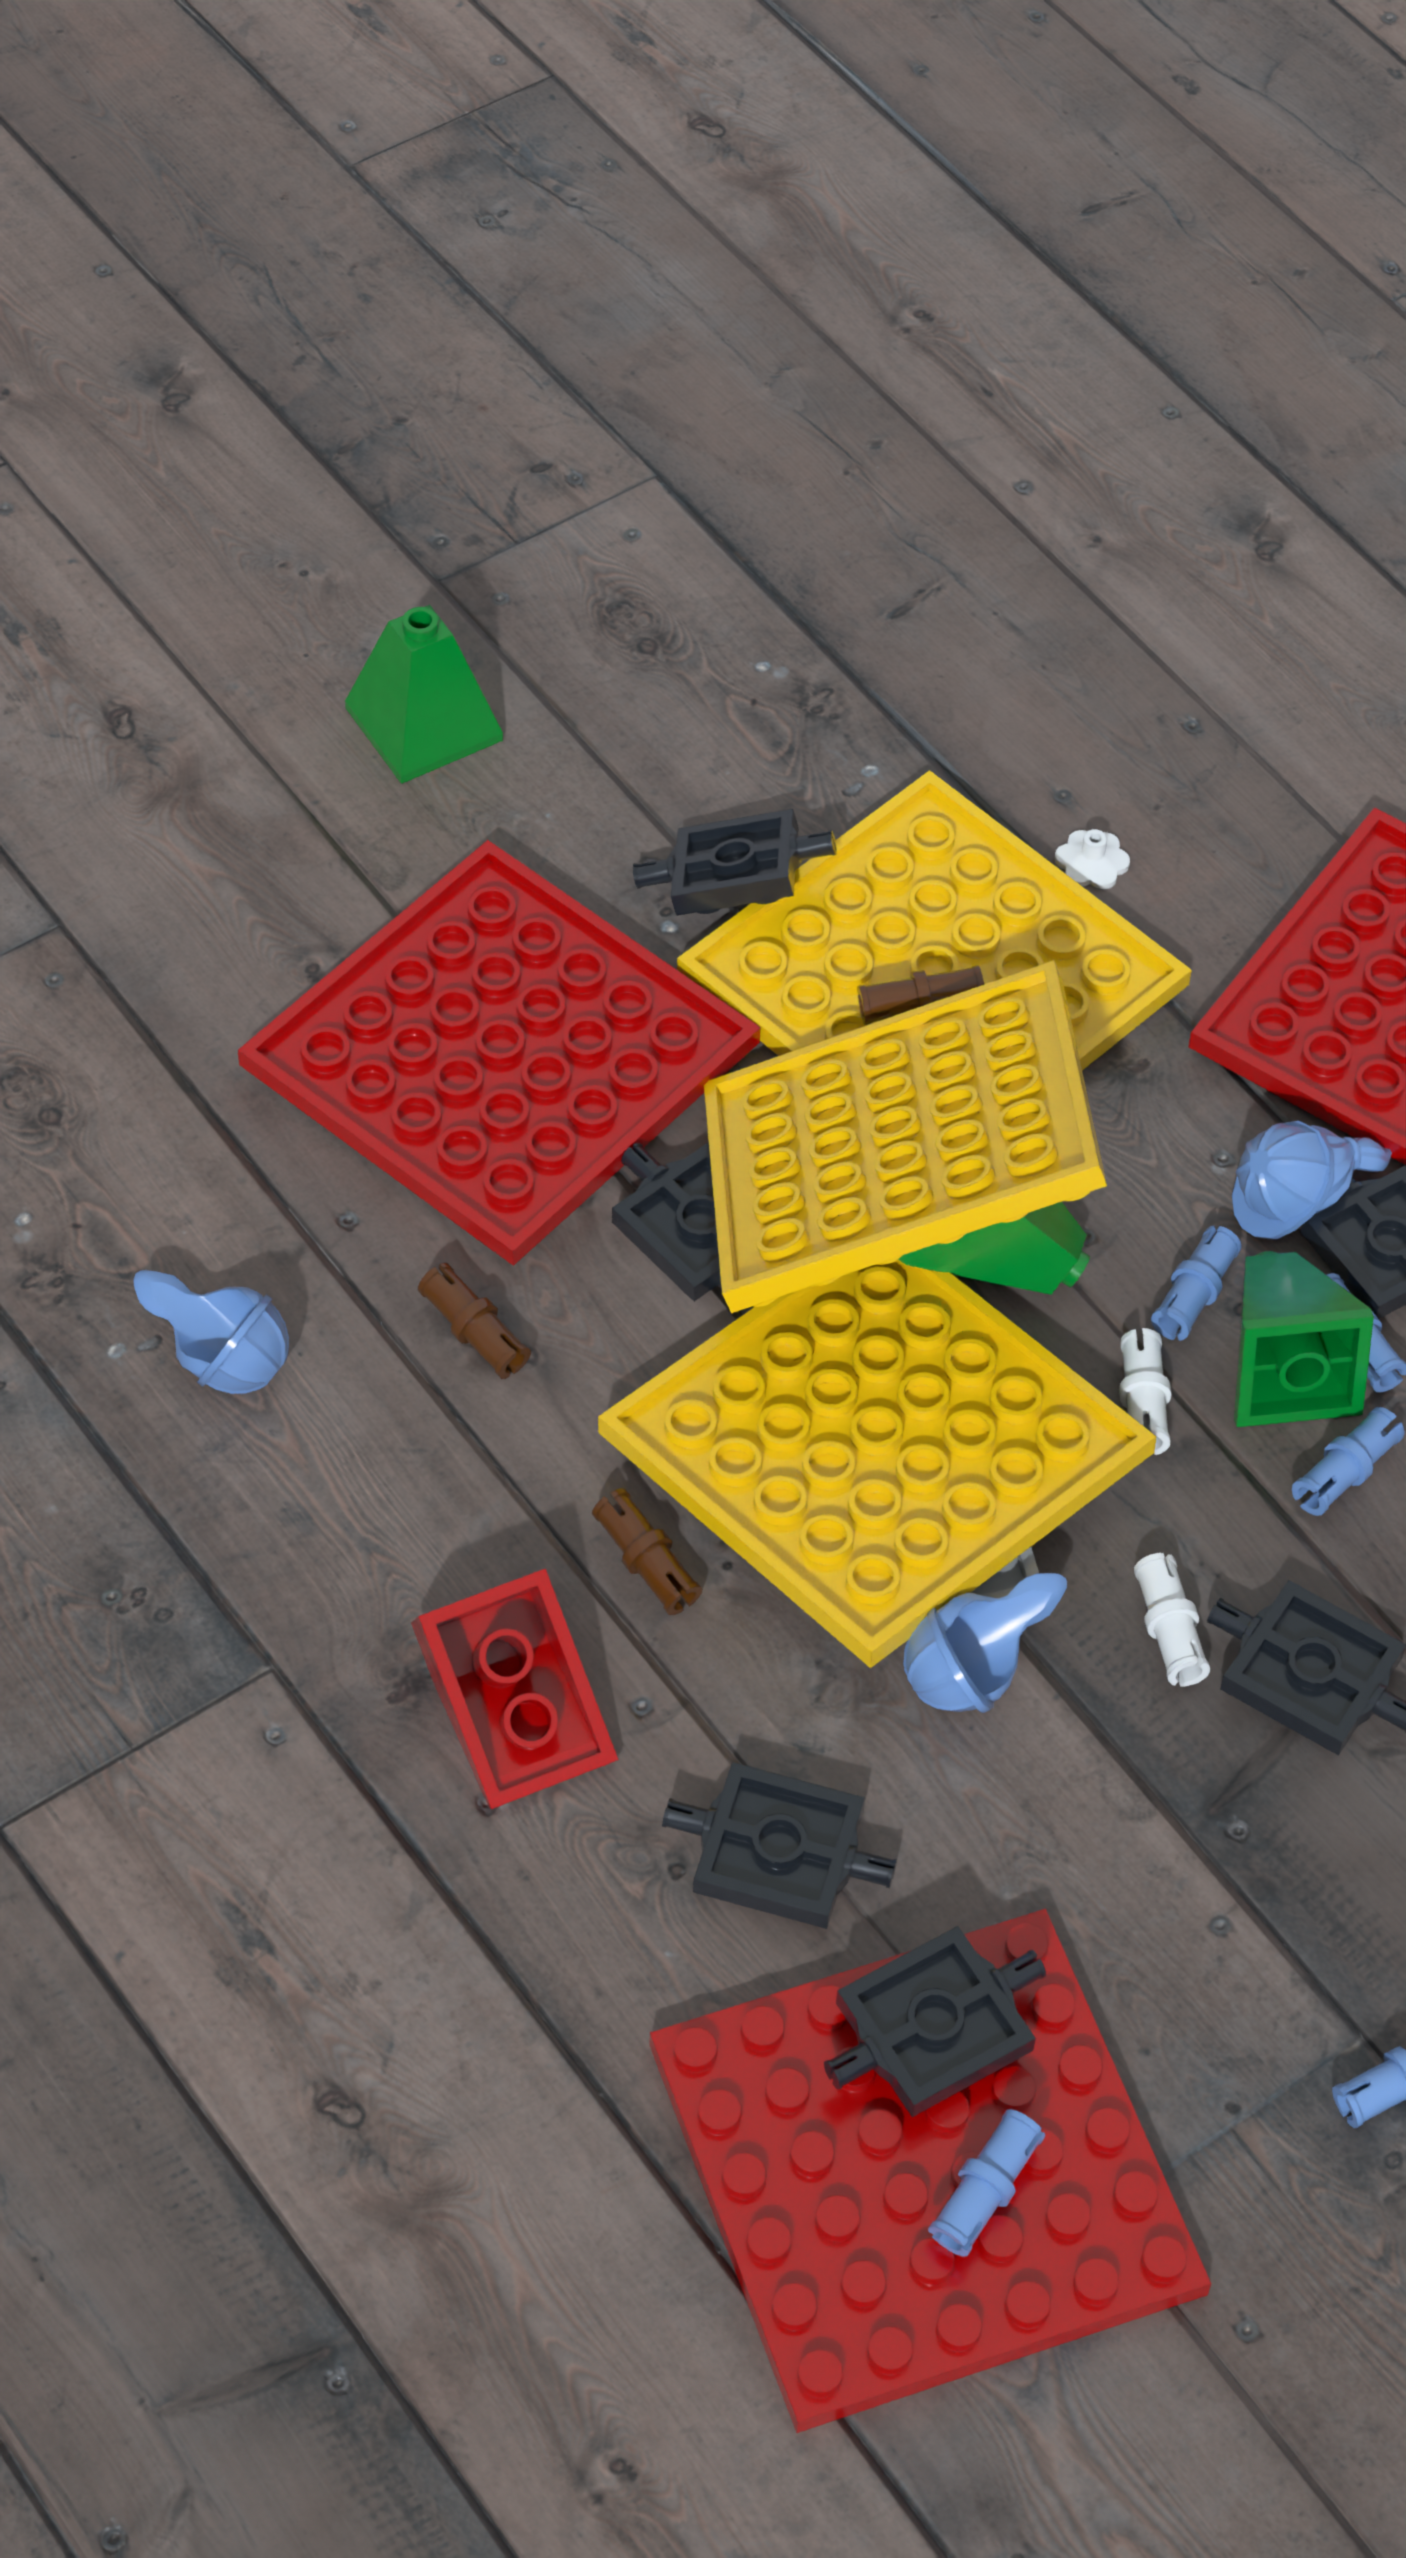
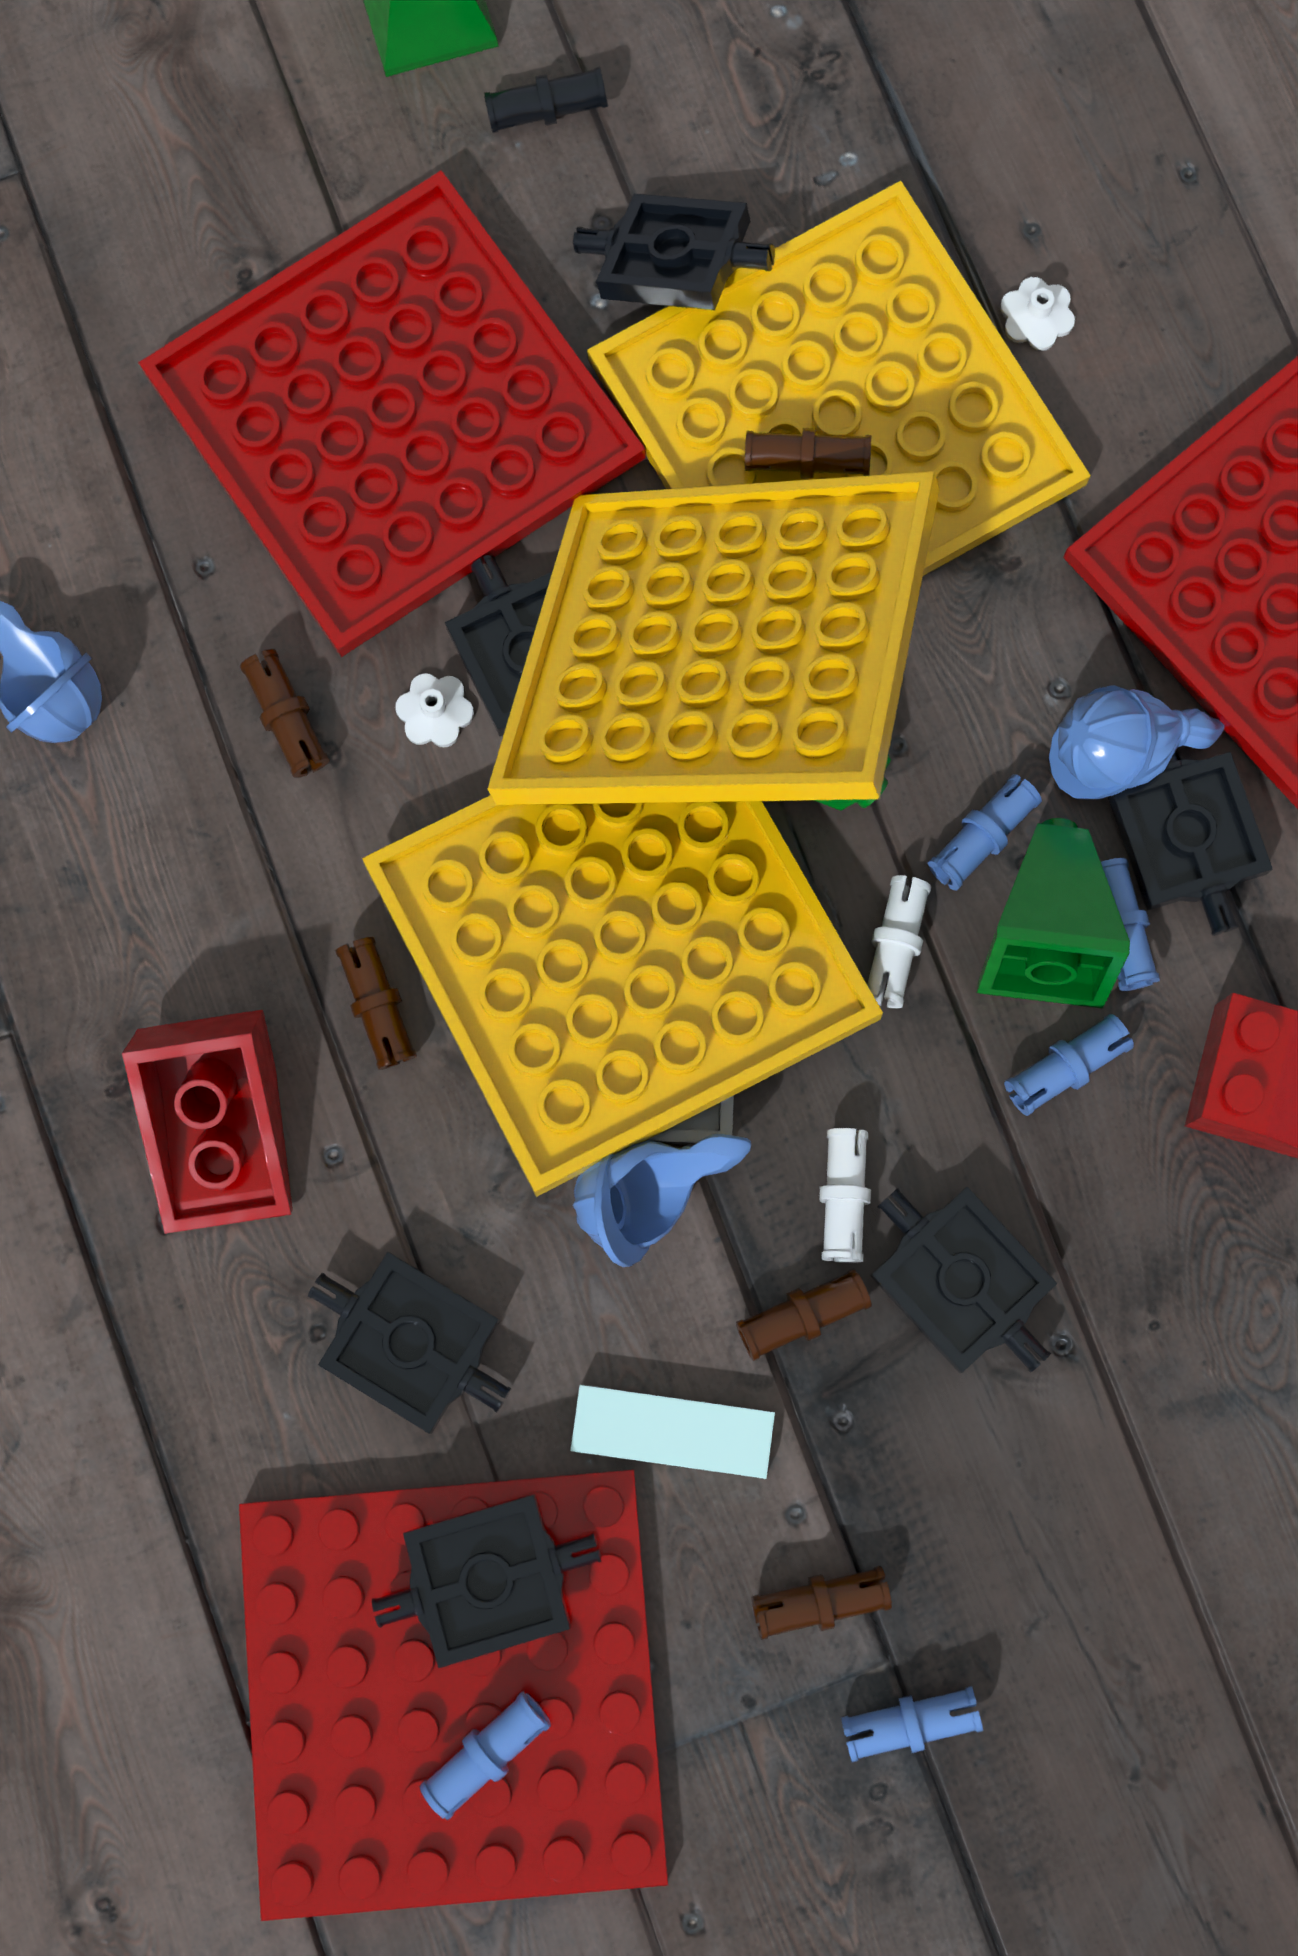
camera: 20 degrees right, 25 degrees up
(568, 769) = (546, 99): none -> black pin
(620, 1295) = (437, 722): none -> white plant
(1072, 1870) = (672, 1431): none -> light aqua tile
(1167, 1732) = (803, 1314): none -> reddish brown pin
(1275, 1985) = (821, 1602): none -> reddish brown pin

